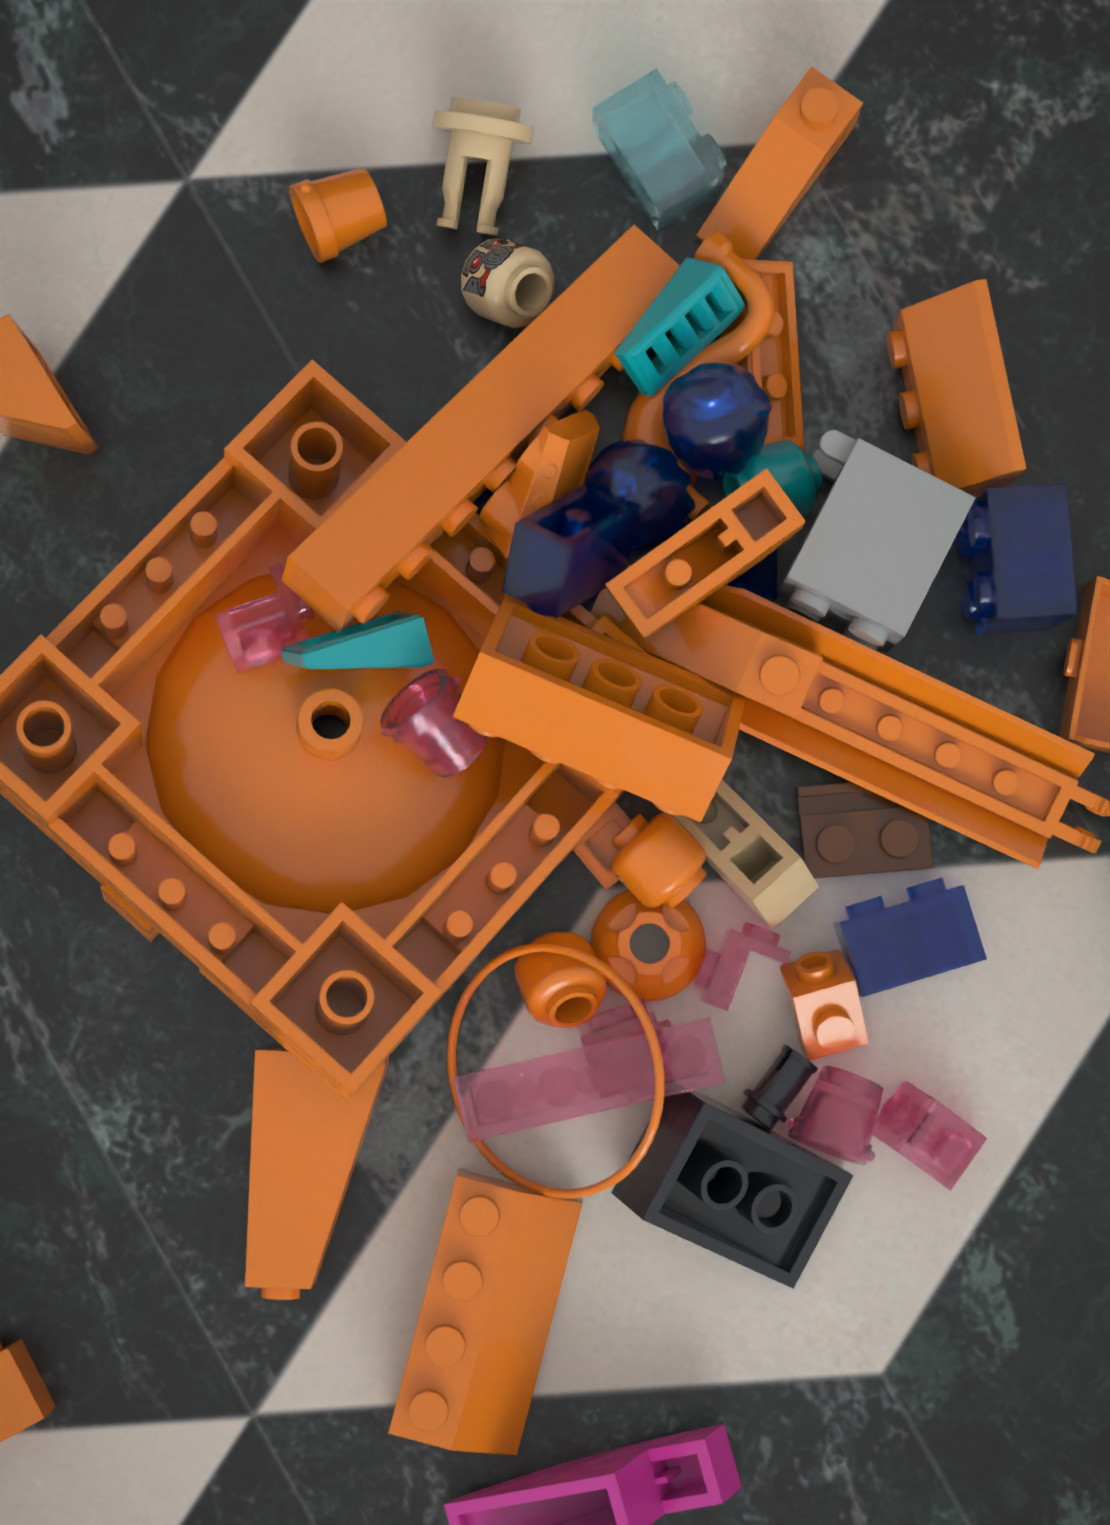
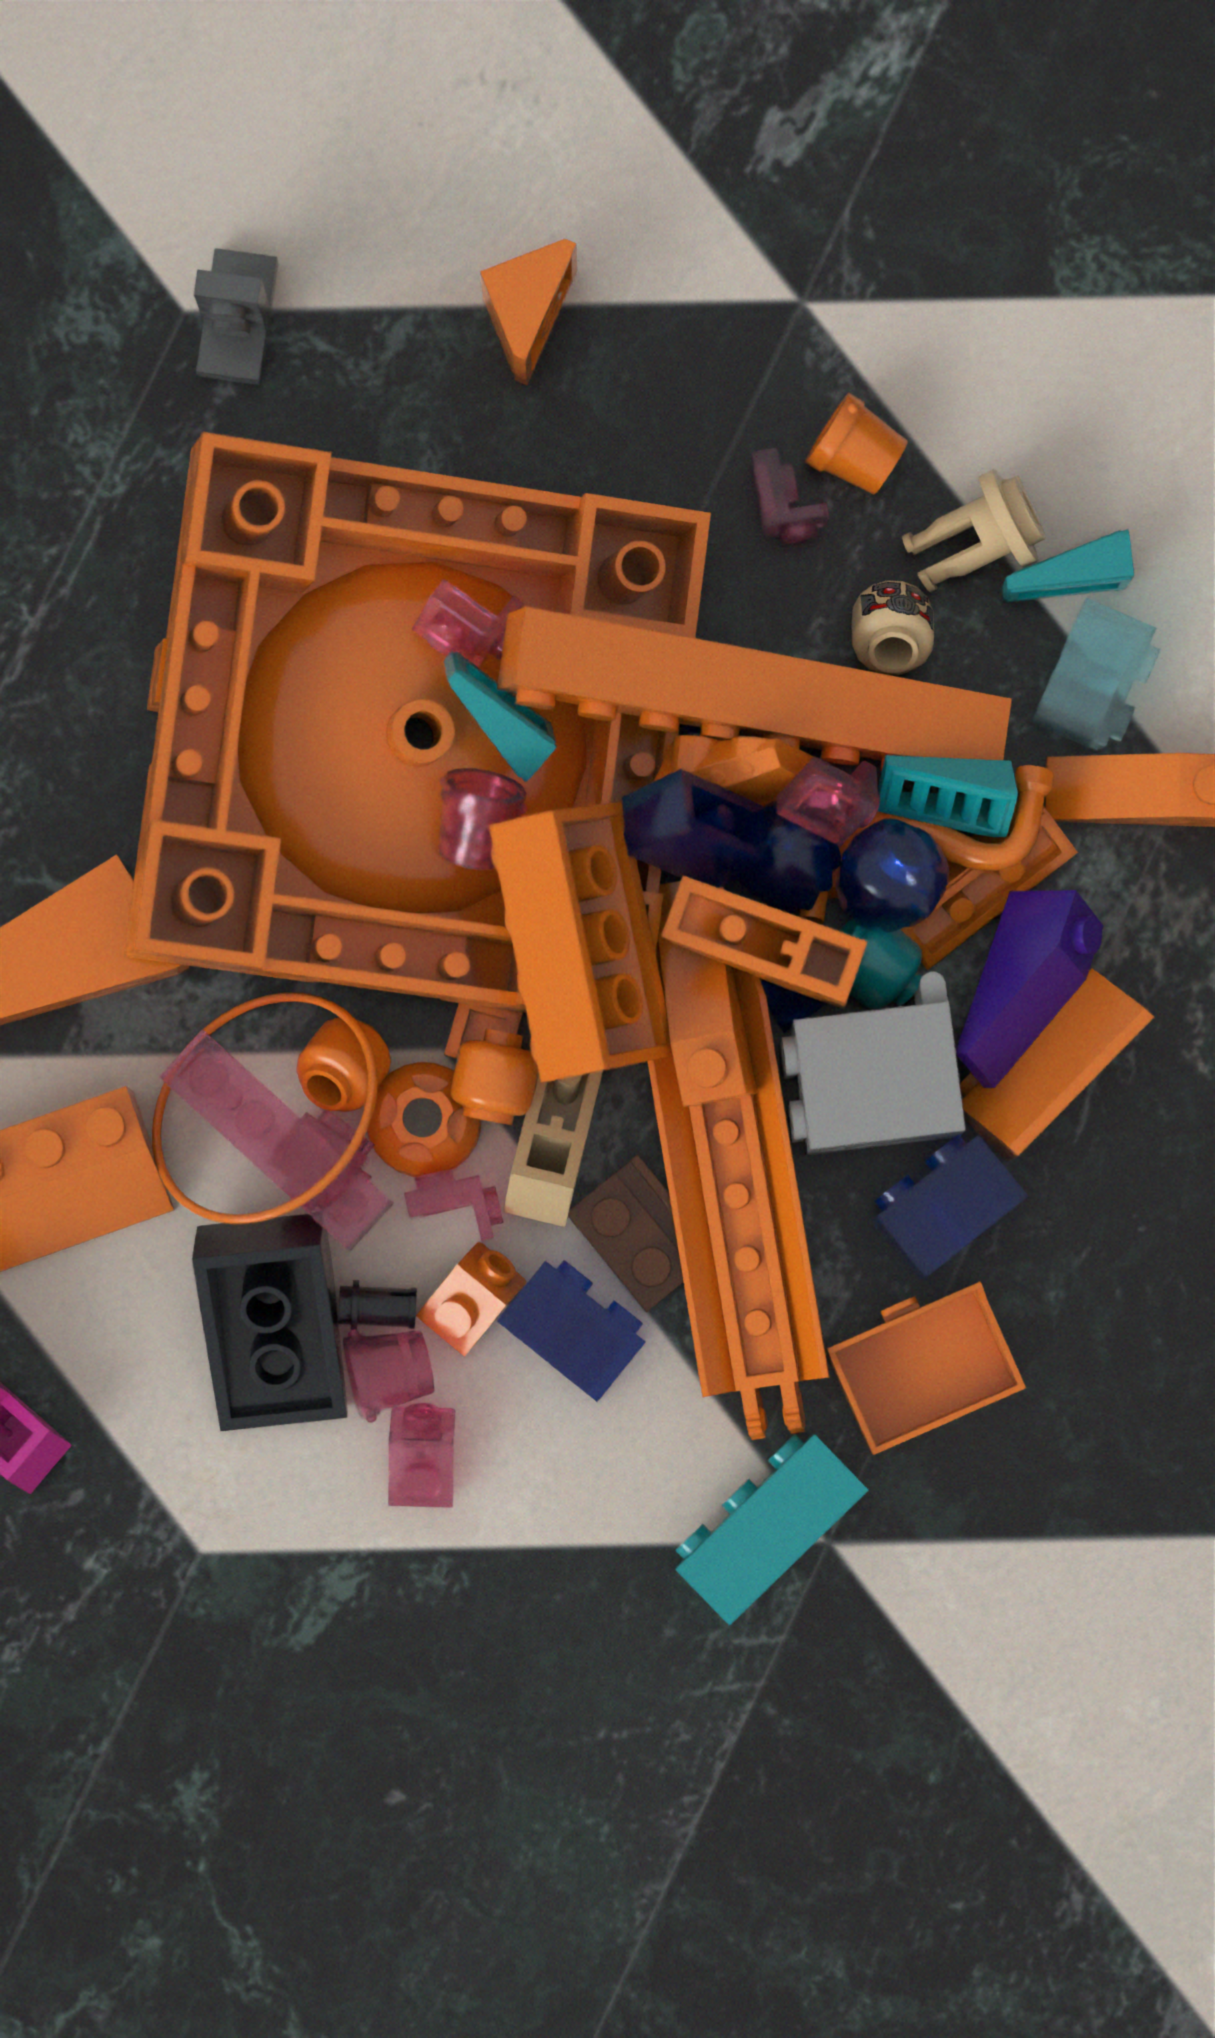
camera: 55 degrees right, 0 degrees up
(327, 301) = (774, 489): none -> clear pink bracket
(567, 94) = (1089, 568): none -> teal slope
(621, 422) = (831, 799): none -> clear pink bracket
(874, 363) = (1028, 977): none -> dark purple slope

